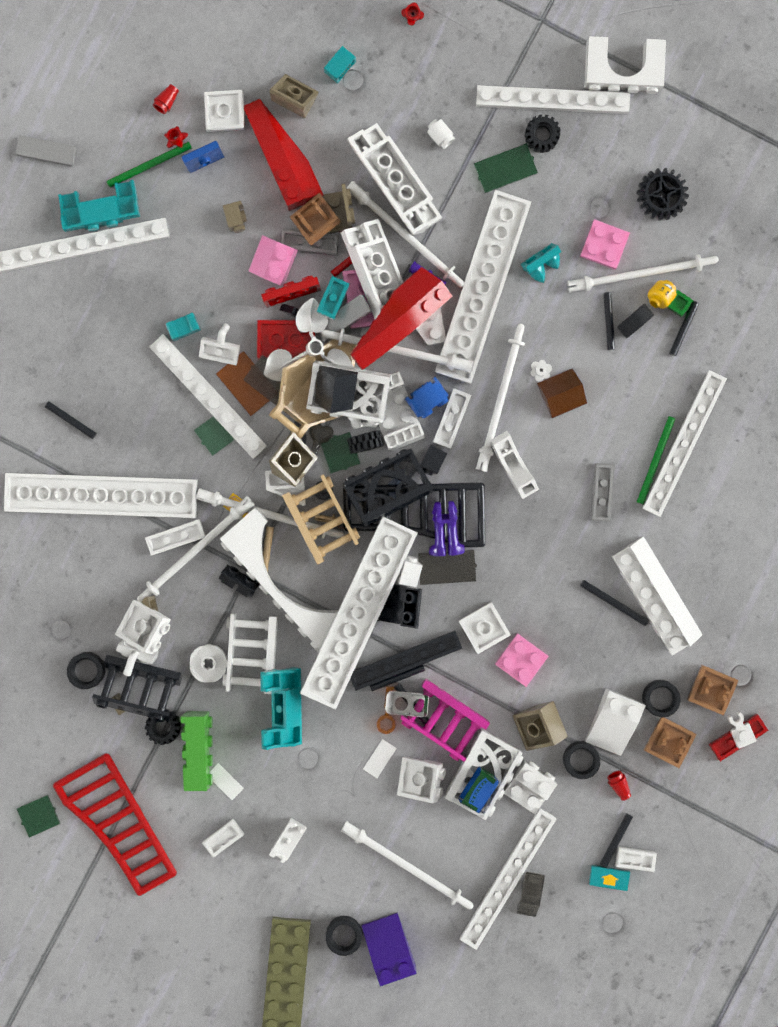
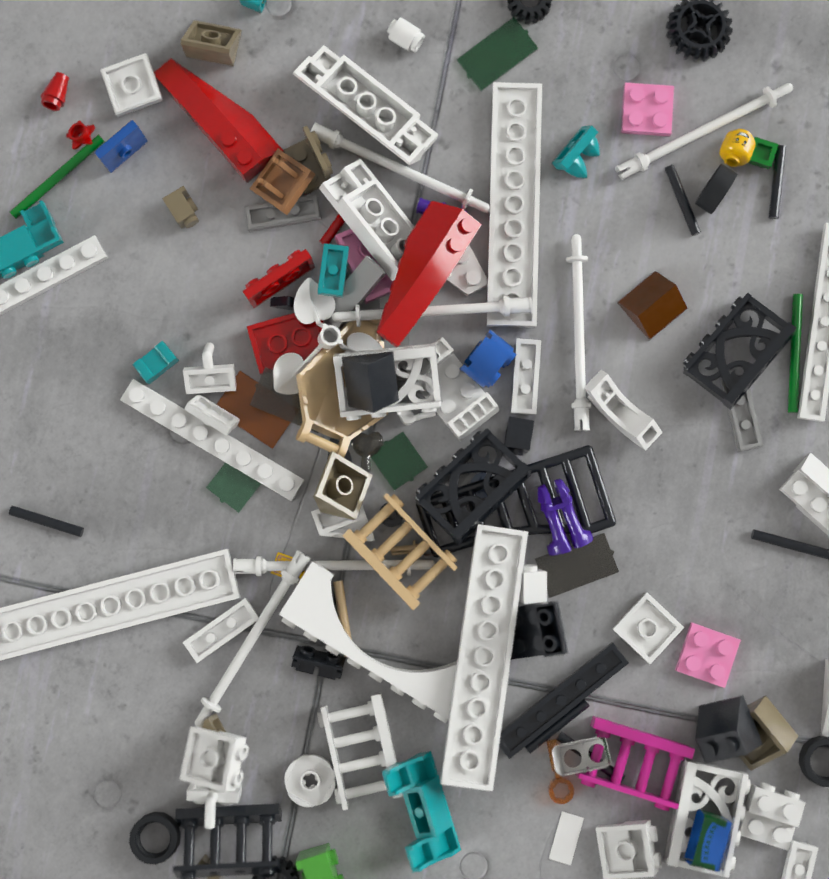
camera: 15 degrees left, 5 degrees down
(213, 378) = (212, 414): none -> white plate
(273, 260) = (244, 247): bright pink slope -> none
(365, 442) = (426, 437): black tyre -> none
(516, 716) = (726, 730): none -> black slope
(536, 366) = (611, 288): white plant -> none
(606, 471) = (738, 385): none -> black fence

